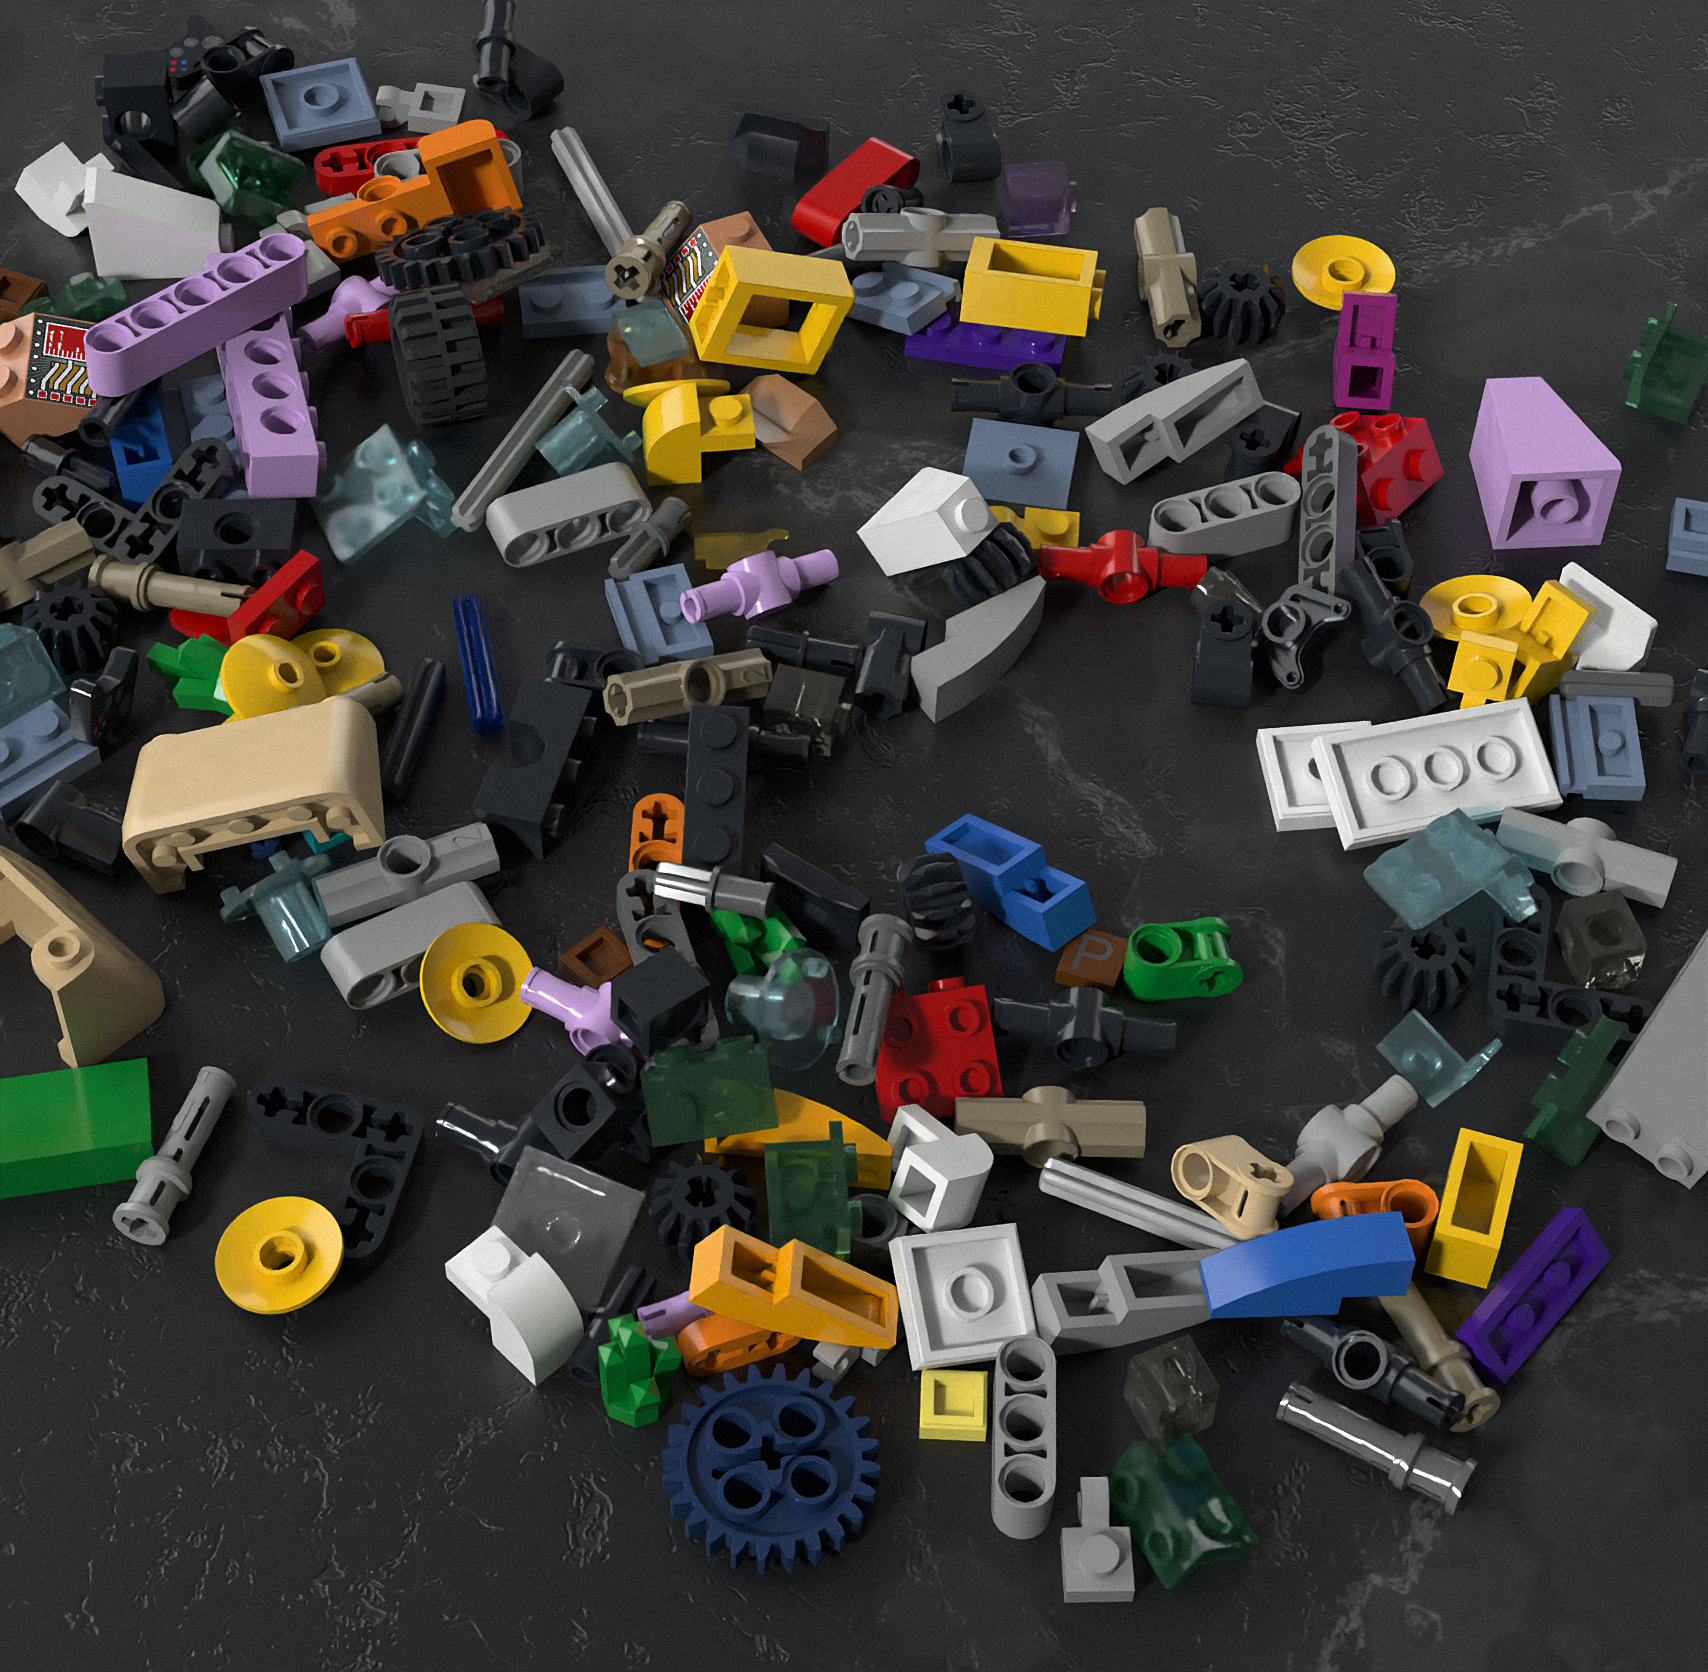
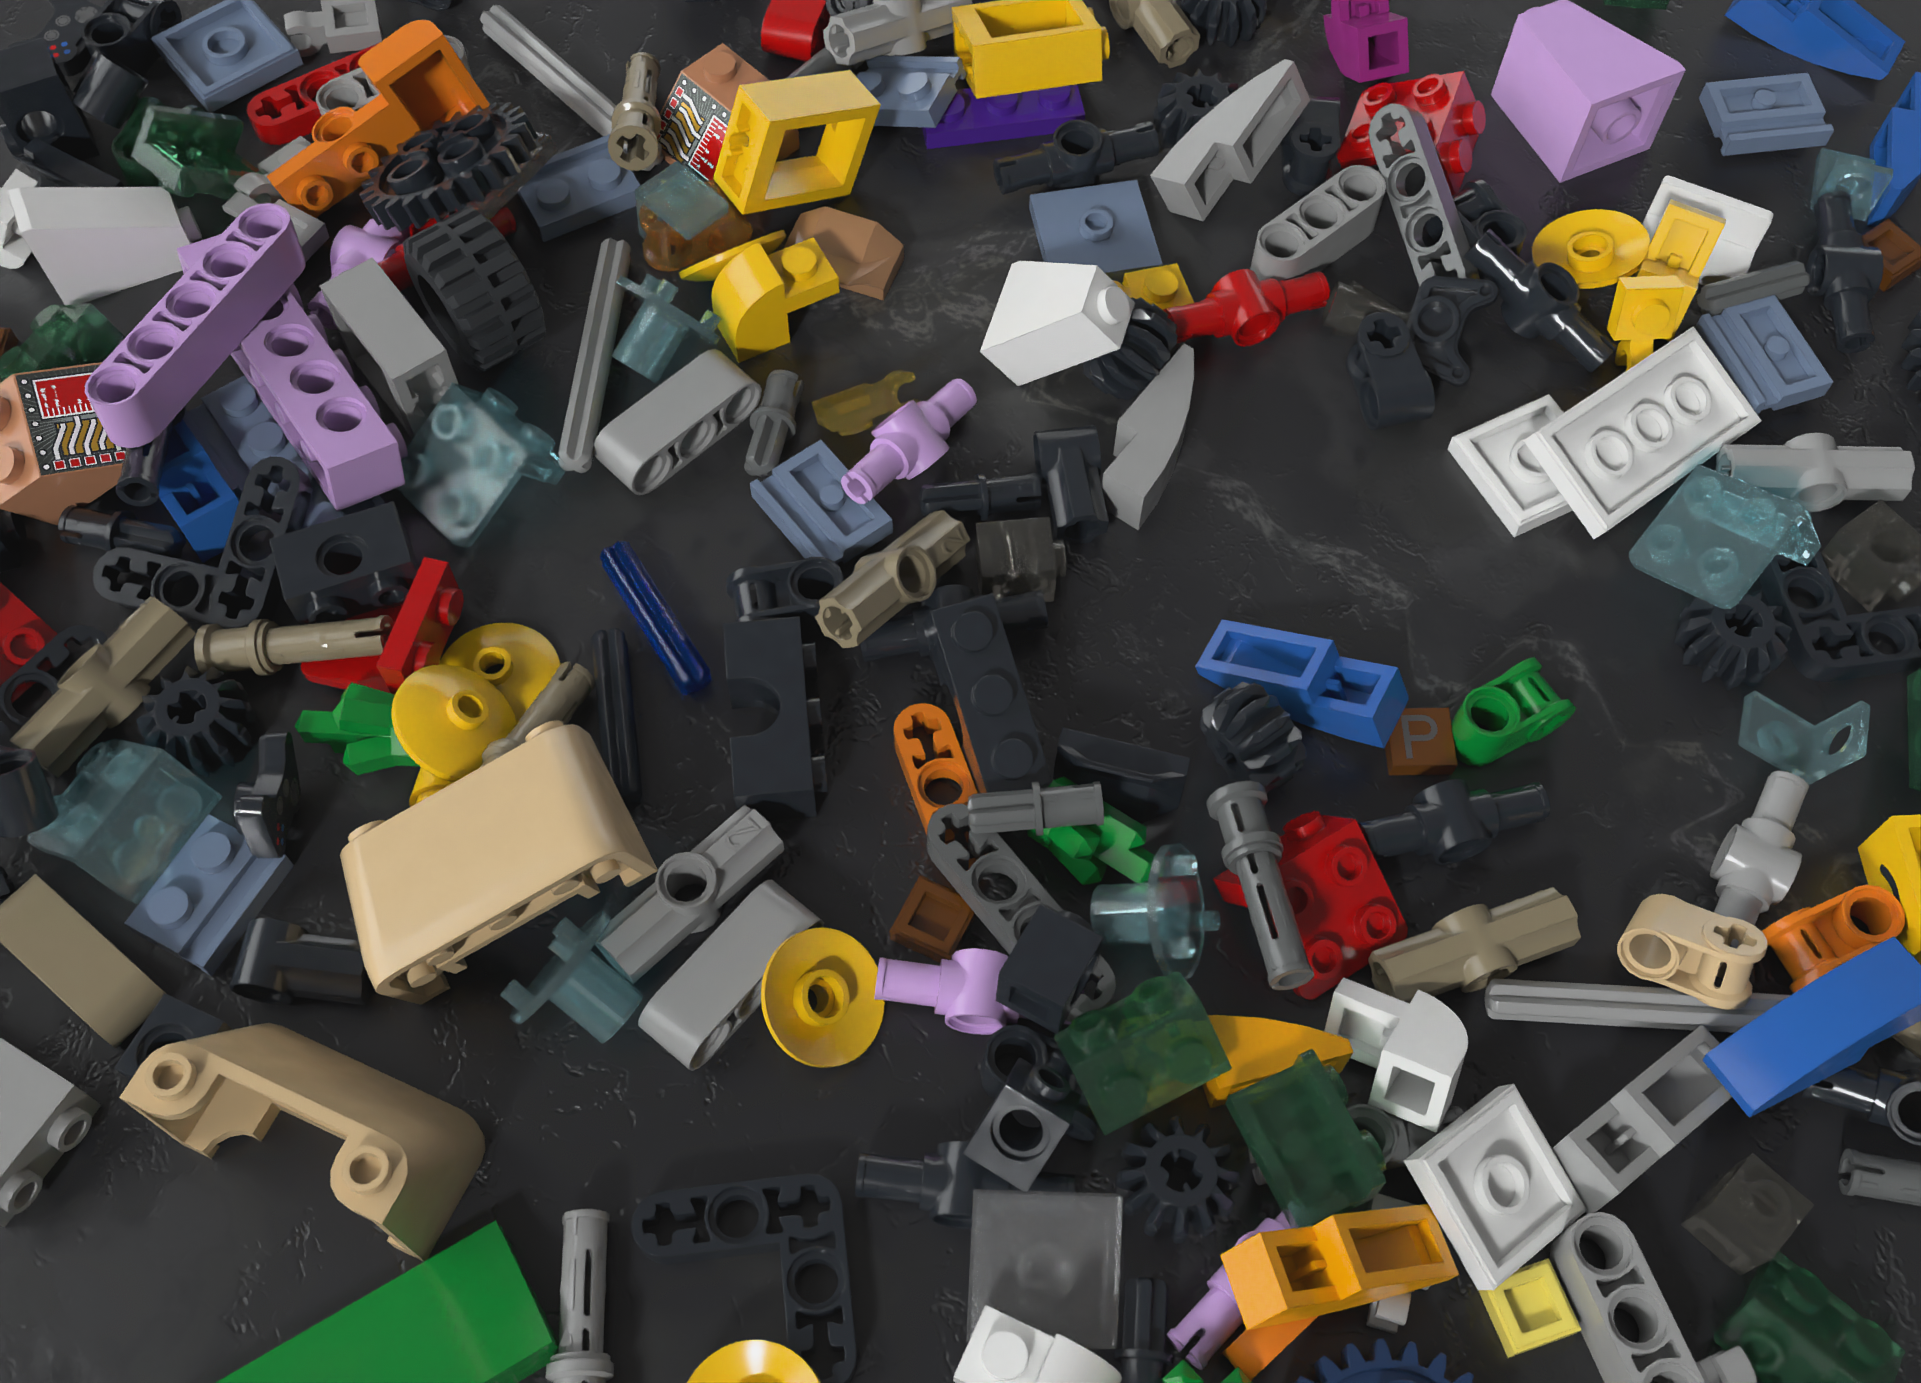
camera: 20 degrees left, 10 degrees up
(347, 375) = (389, 343): none -> light grey window

